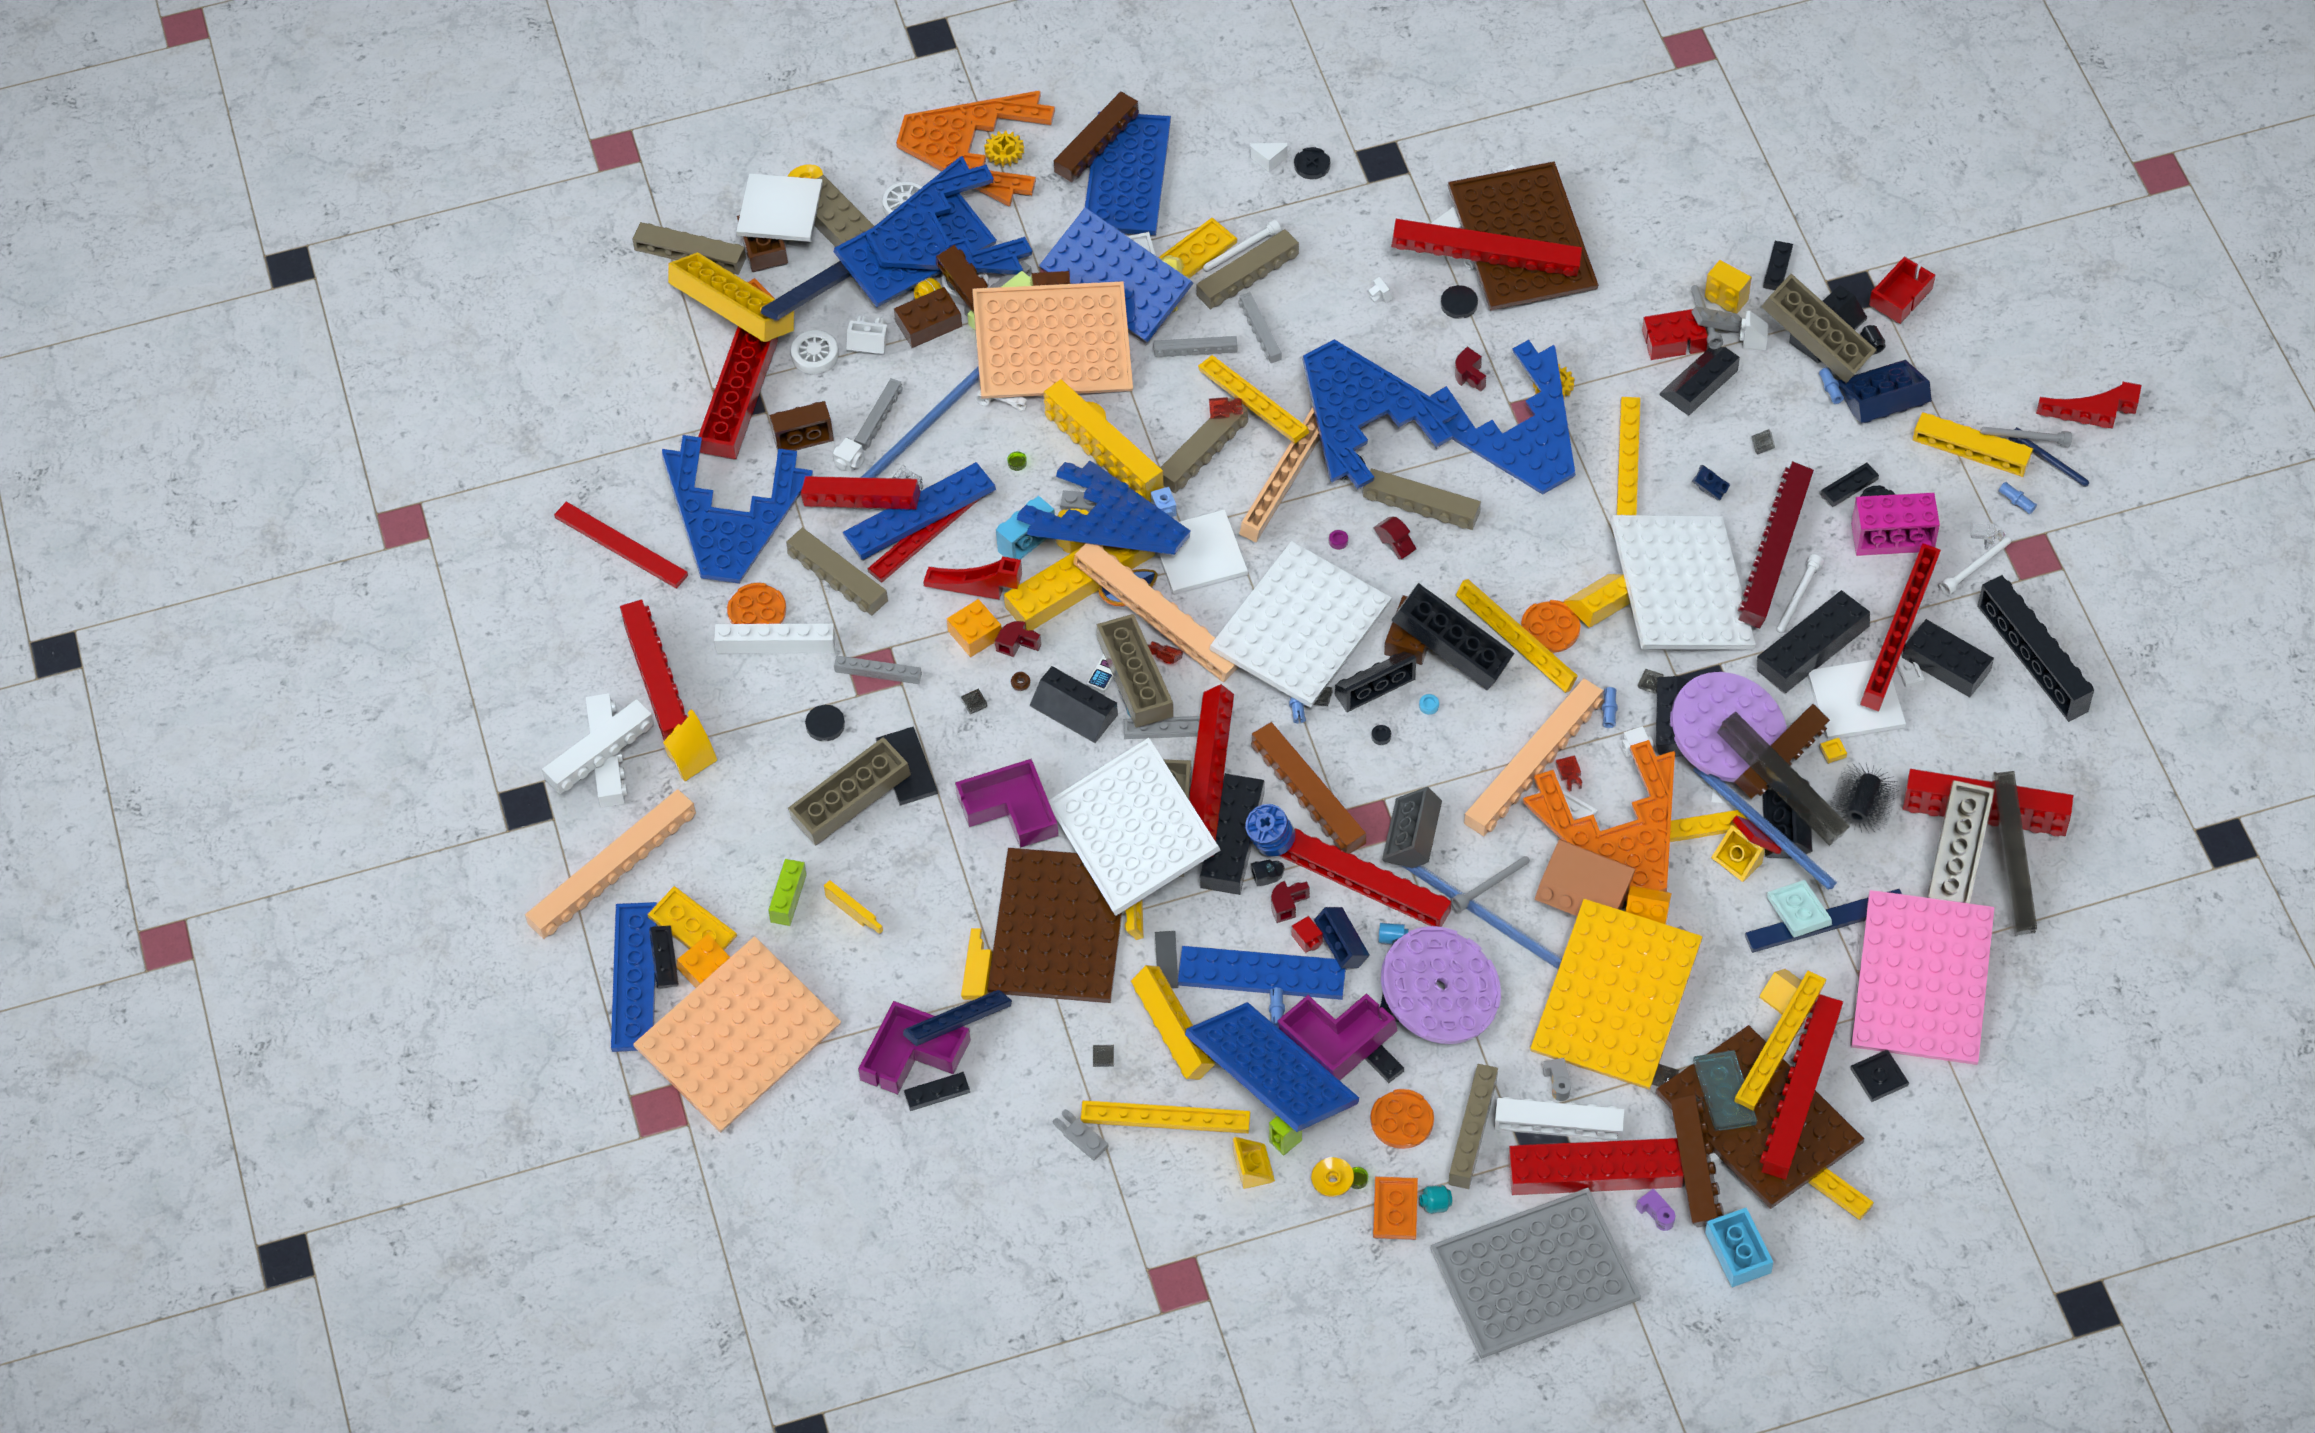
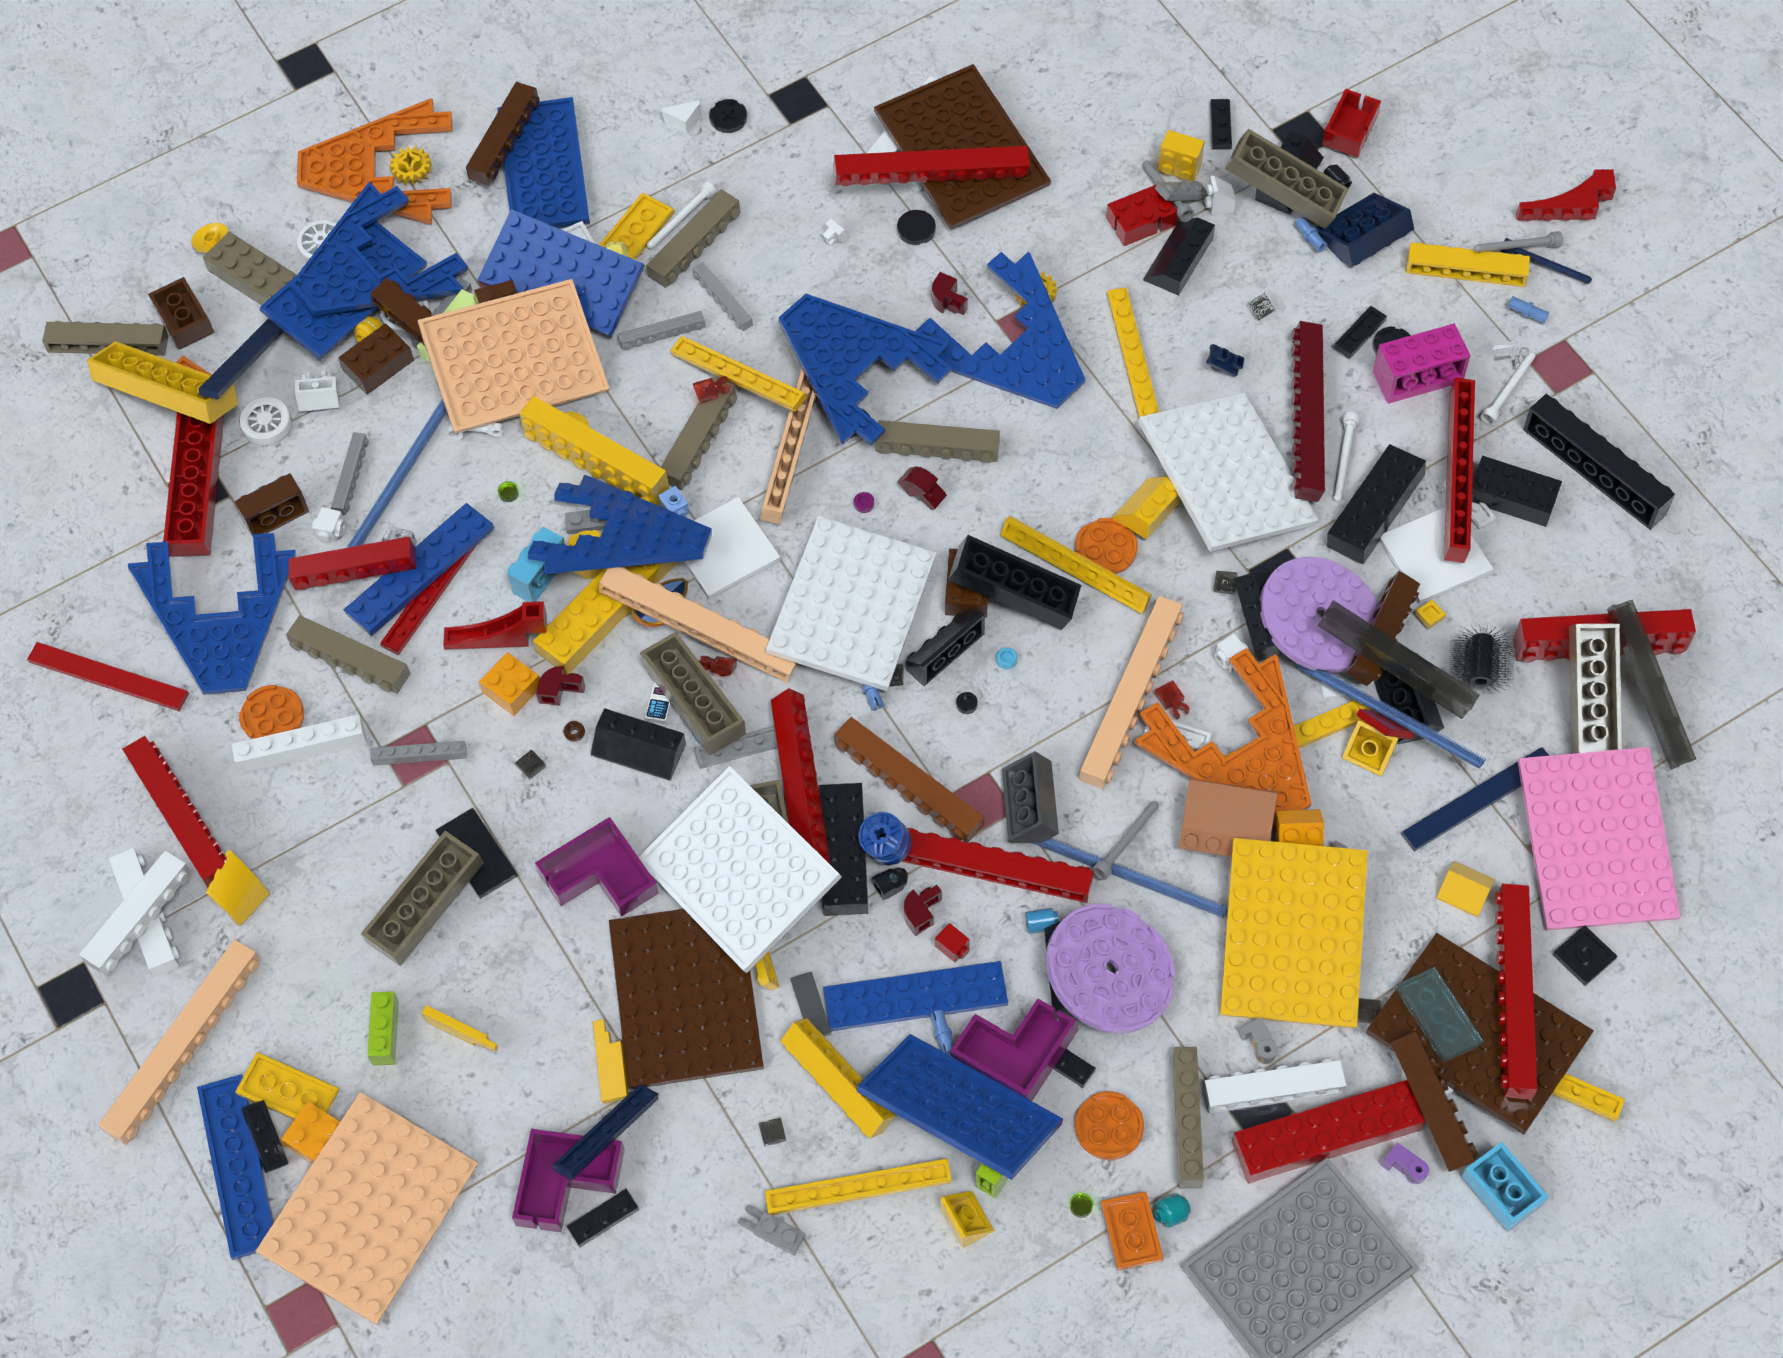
camera: 15 degrees left, 5 degrees up
(779, 207) = (191, 275): white tile -> none
(825, 722) = (376, 825): black tile -> none
(1329, 1169) = (1055, 1201): yellow dish -> none
(1341, 937) = (990, 938): dark blue brick -> none
(1609, 707) = (1192, 620): medium blue pin -> none
(1780, 1040) = (1480, 946): yellow plate -> none
(1799, 908) = (1450, 793): light aqua plate -> none

